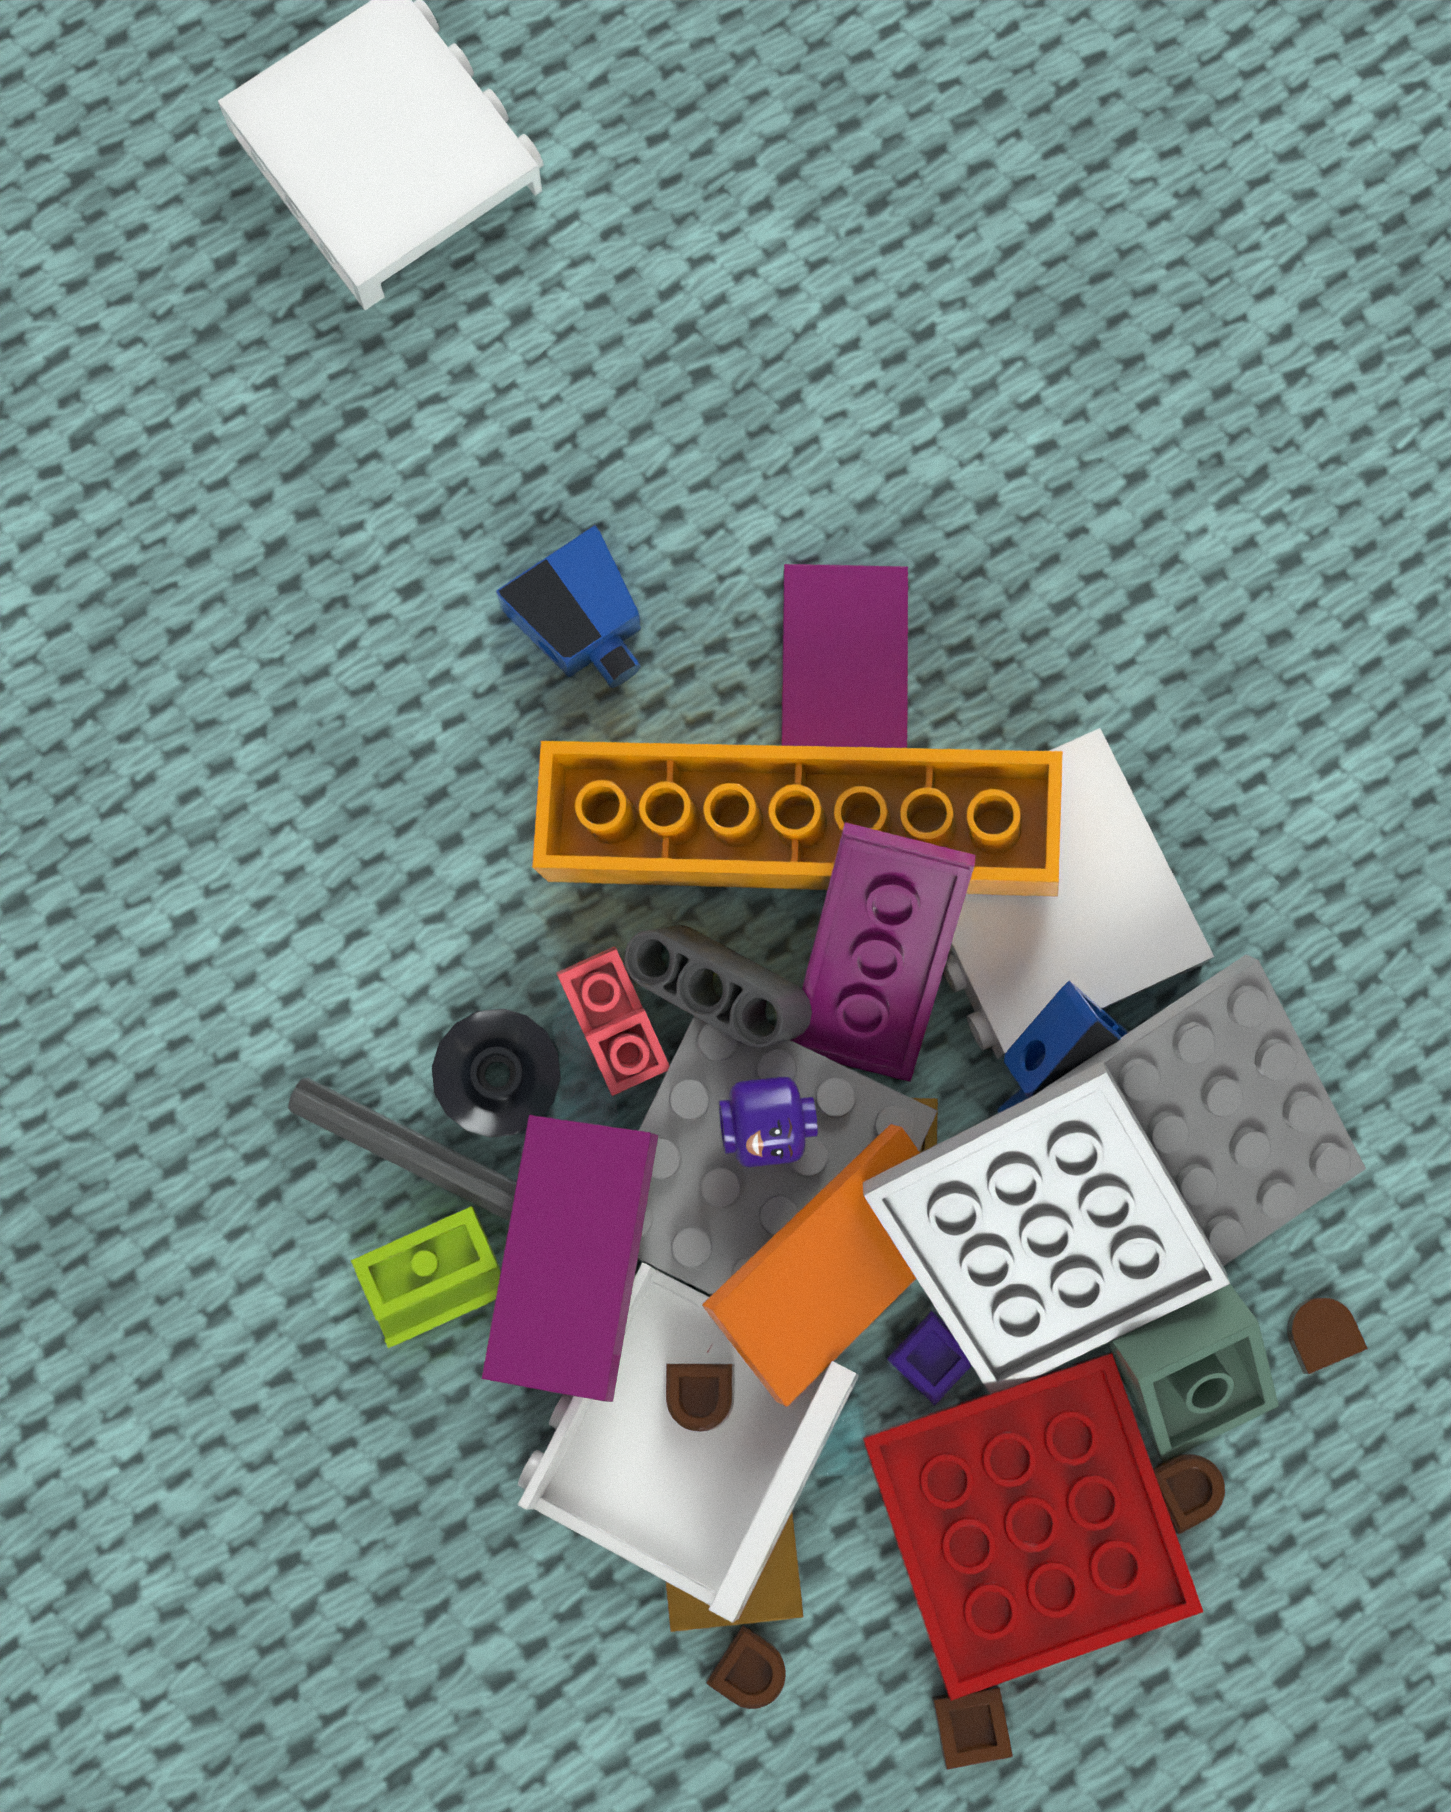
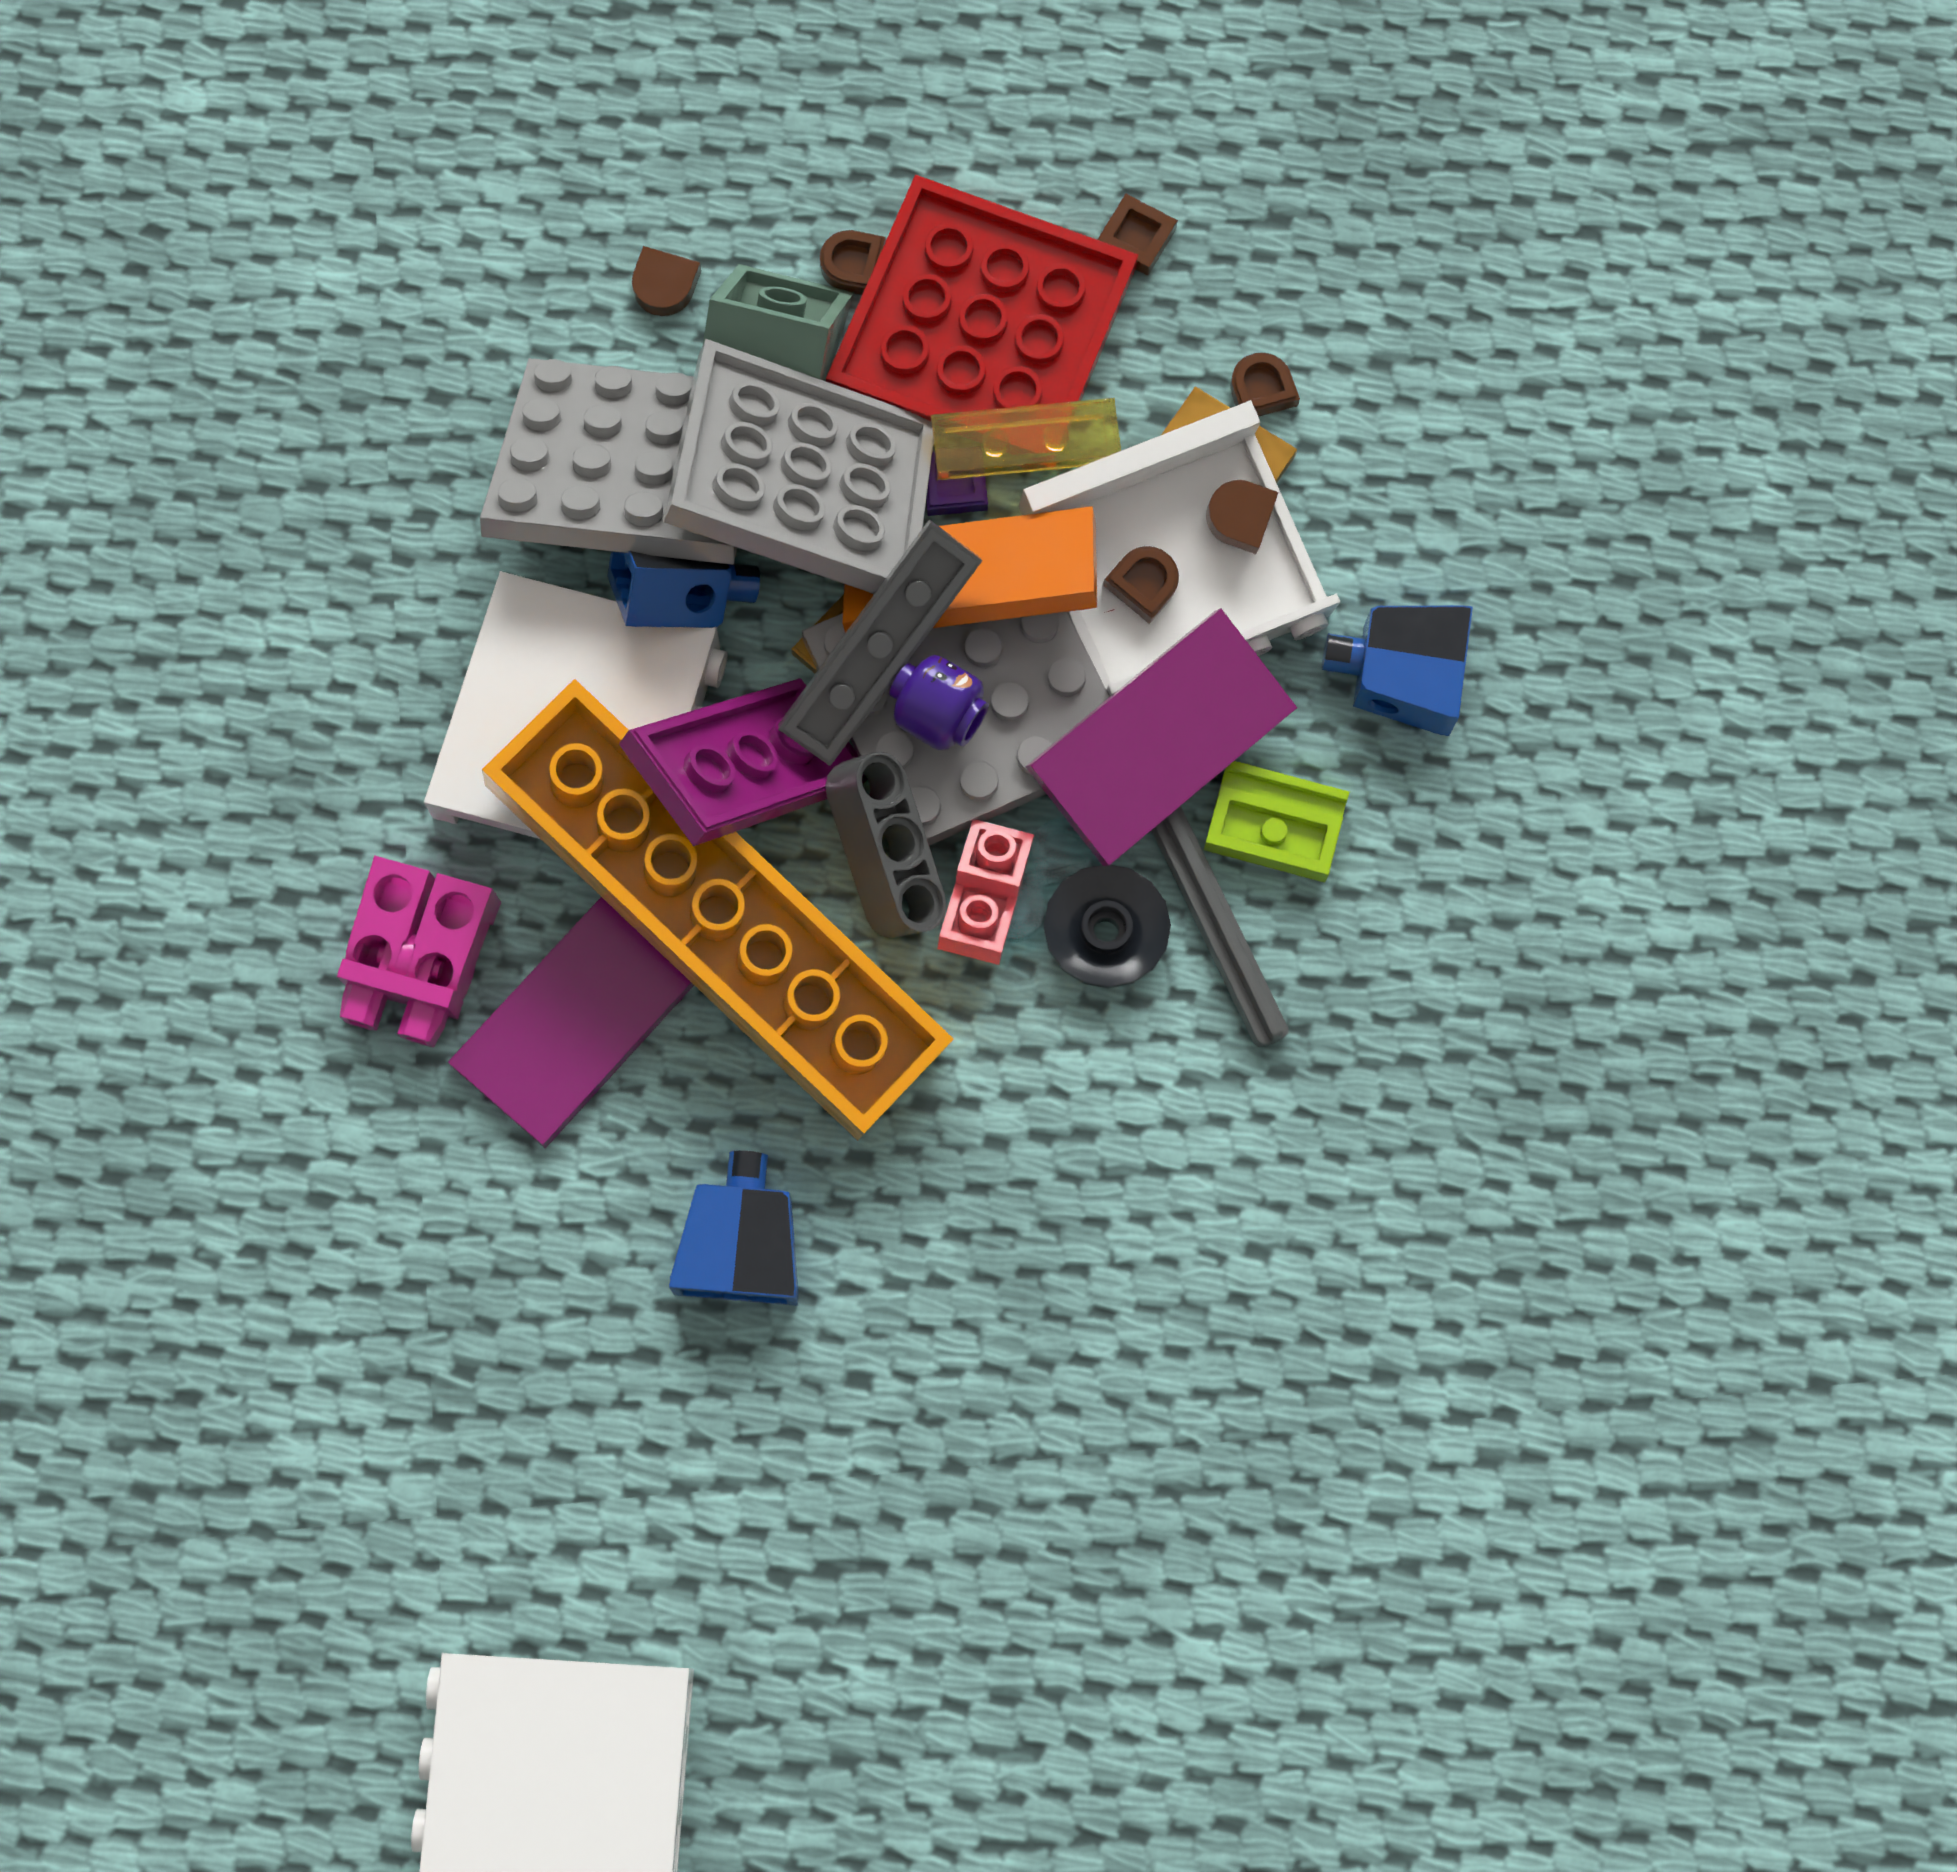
camera: 140 degrees left, 5 degrees down
(425, 1505) = (1407, 663): none -> blue torso
(664, 1518) = (1240, 514): none -> reddish brown tile
(853, 1132) = (879, 642): none -> dark grey tile
(899, 1435) = (1024, 438): none -> clear yellow tile
(1009, 624) = (415, 947): none -> dark pink hips

